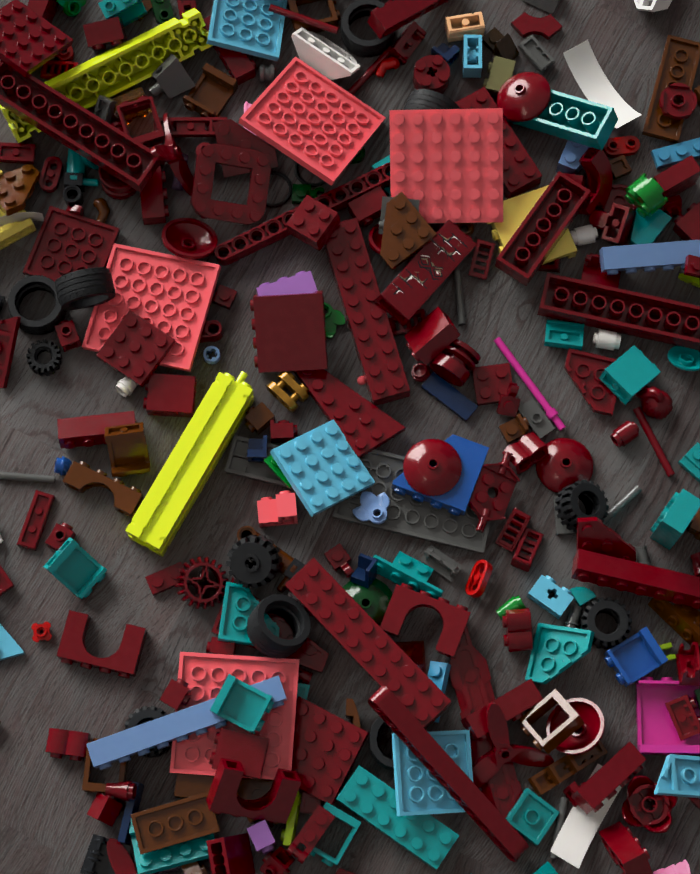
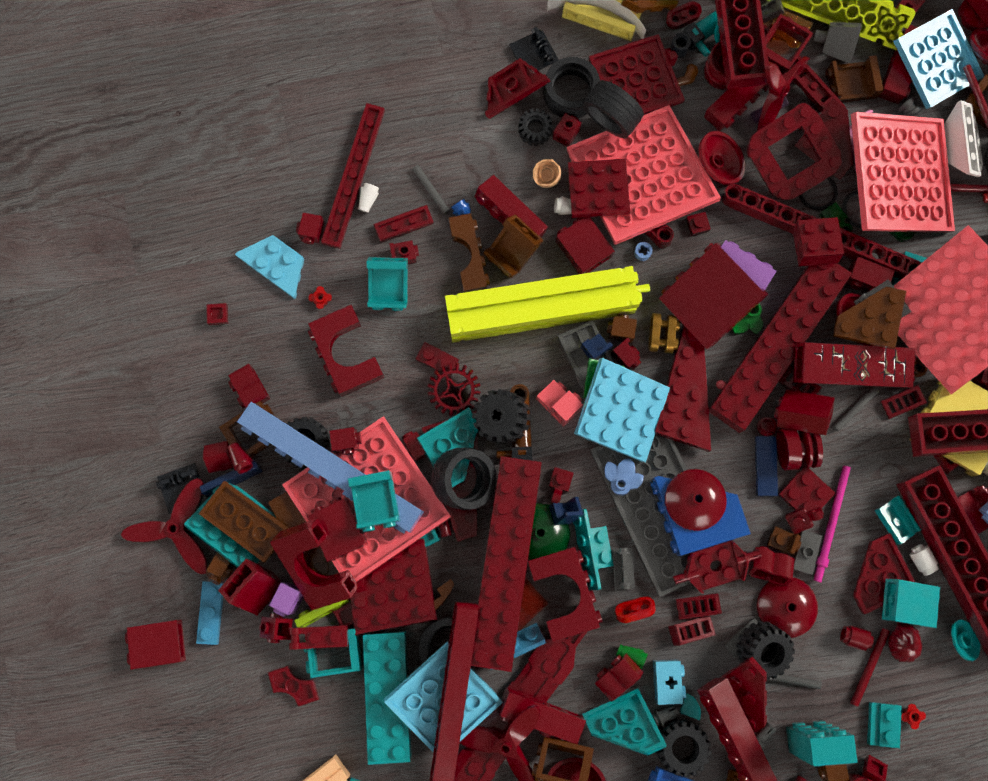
camera: 50 degrees right, 5 degrees up
(89, 378) = (547, 173): none -> light nougat hair

